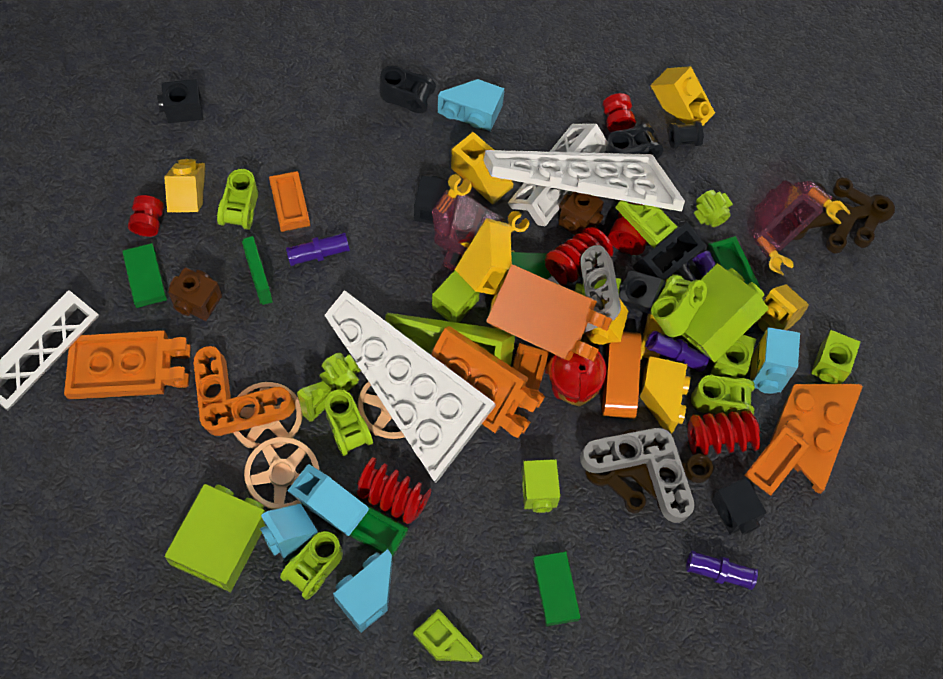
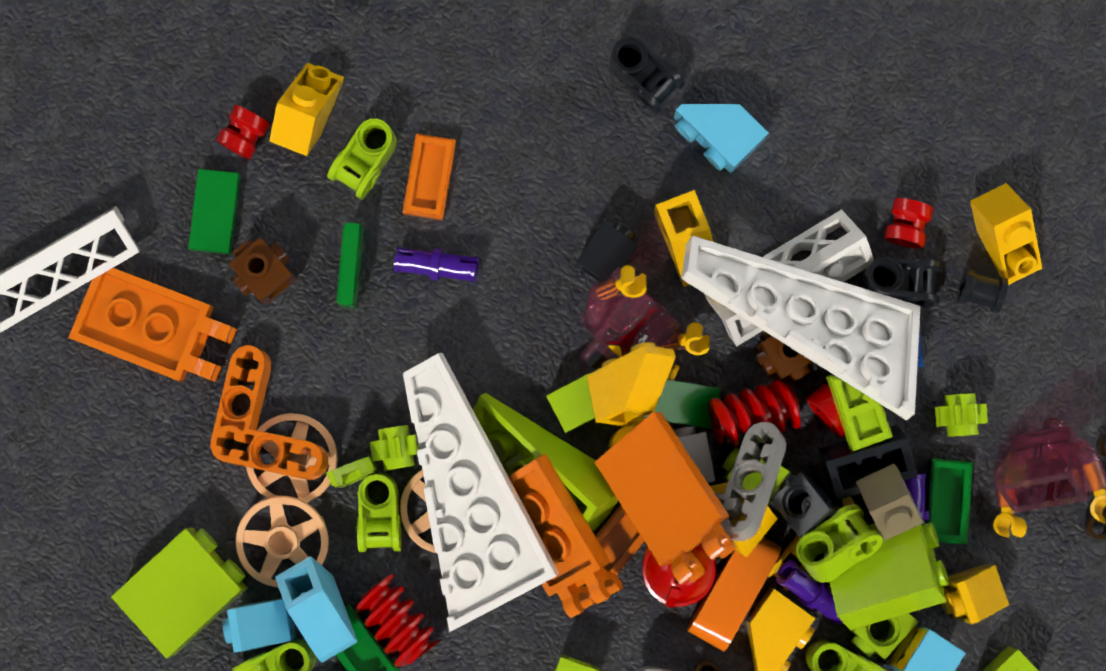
camera: 30 degrees right, 20 degrees up
(697, 261) = (889, 502): none -> dark tan brick

